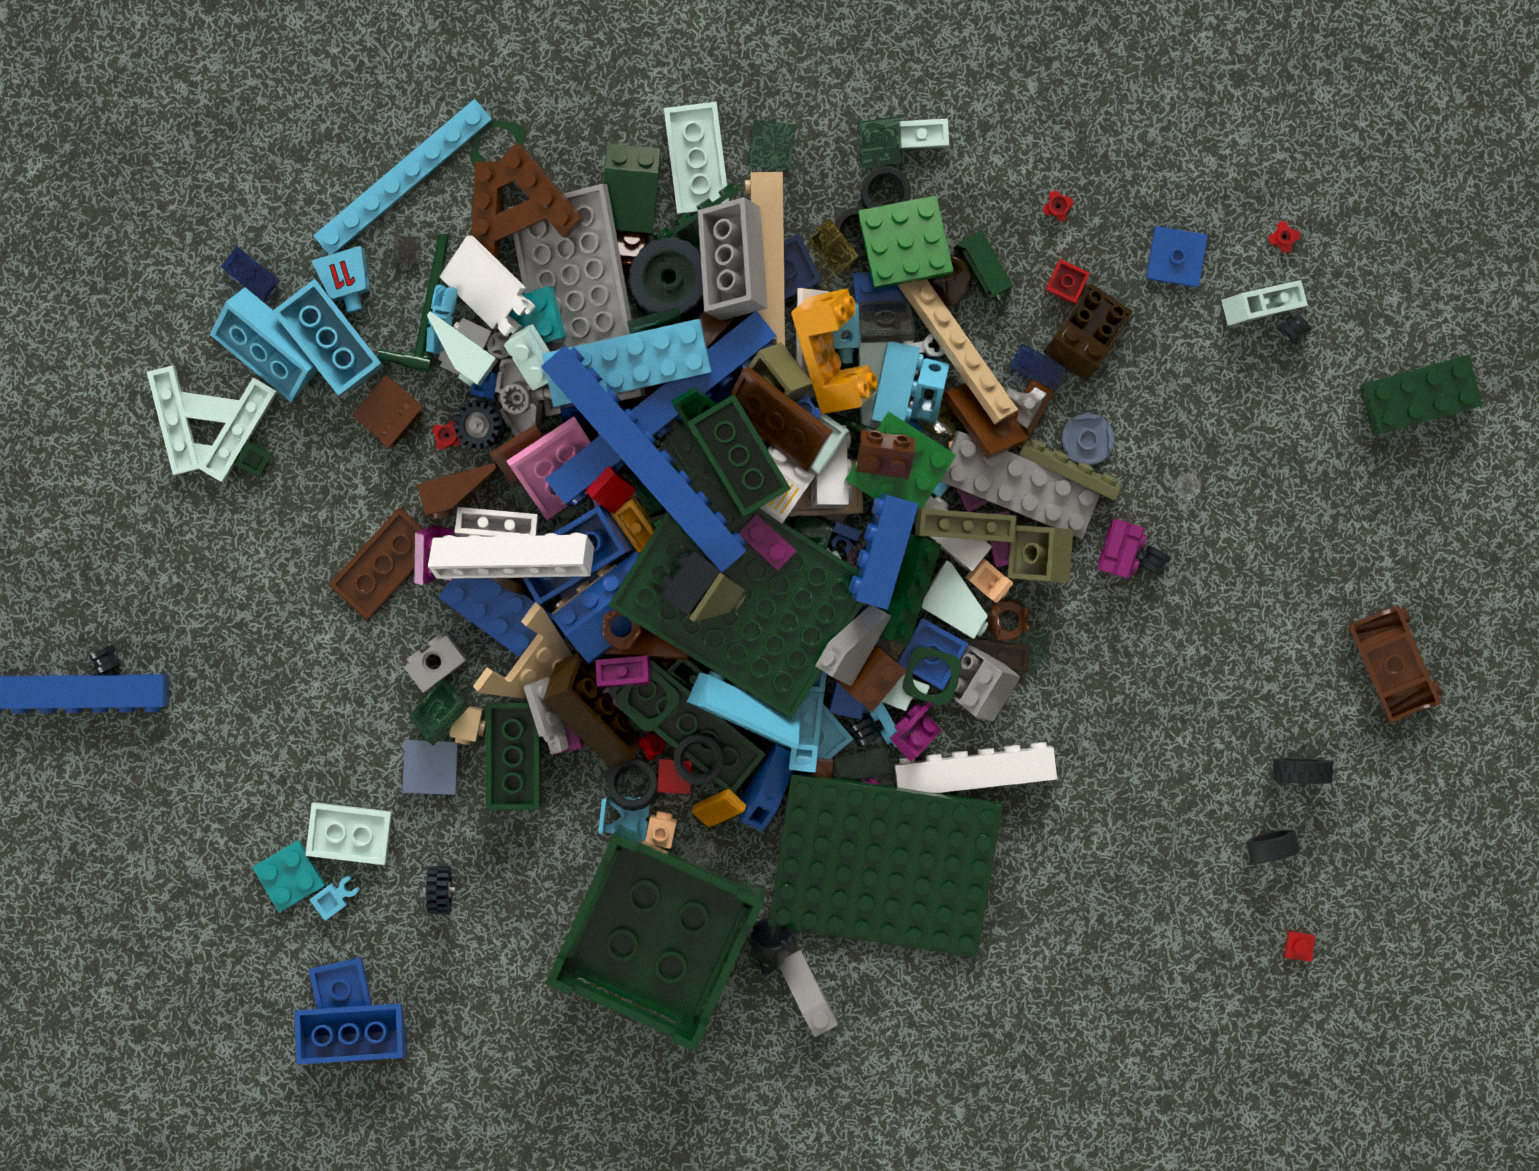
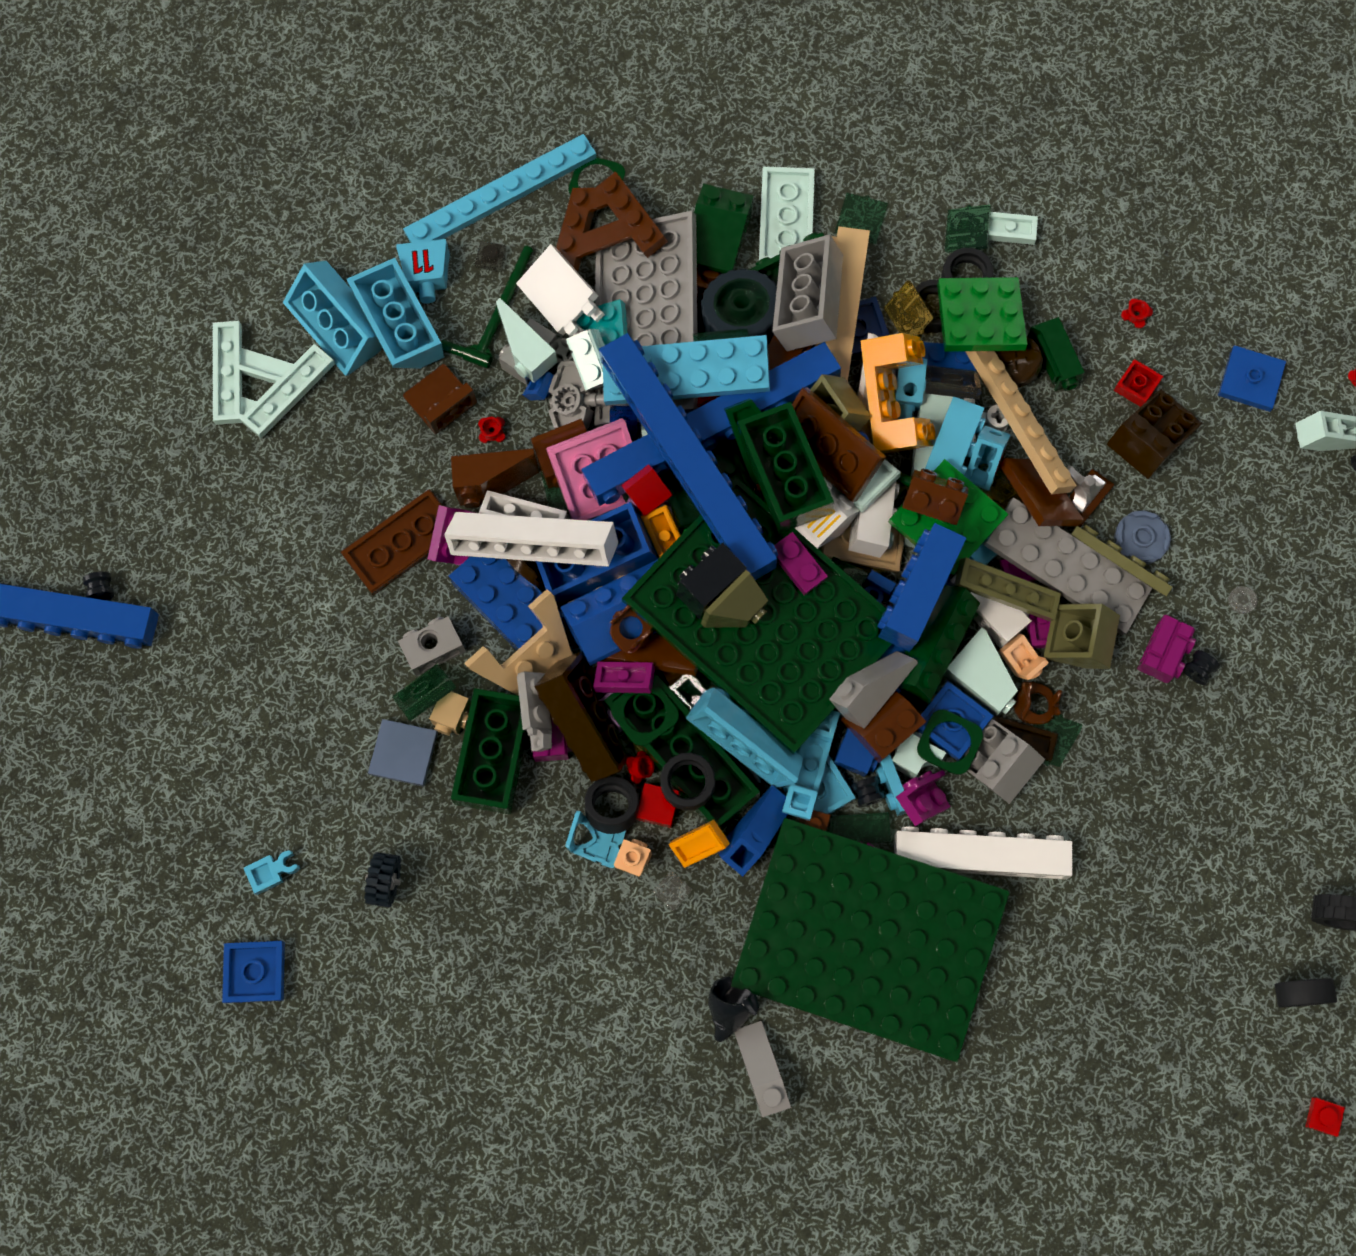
camera: 15 degrees right, 15 degrees down
(250, 273) = (335, 252): clear blue plate -> none
(252, 458) = (295, 419): dark green plate -> none
(288, 876) = (228, 841): teal plate -> none
(348, 833) = (302, 806): light aqua plate -> none
(350, 1034) = (251, 1022): blue slope -> none
(443, 306) = (518, 302): medium azure hinge -> none
(479, 424) = (525, 420): black wheel -> none
(656, 937) = (606, 959): dark green piece -> none
(1038, 367) = (1096, 456): clear blue plate -> none

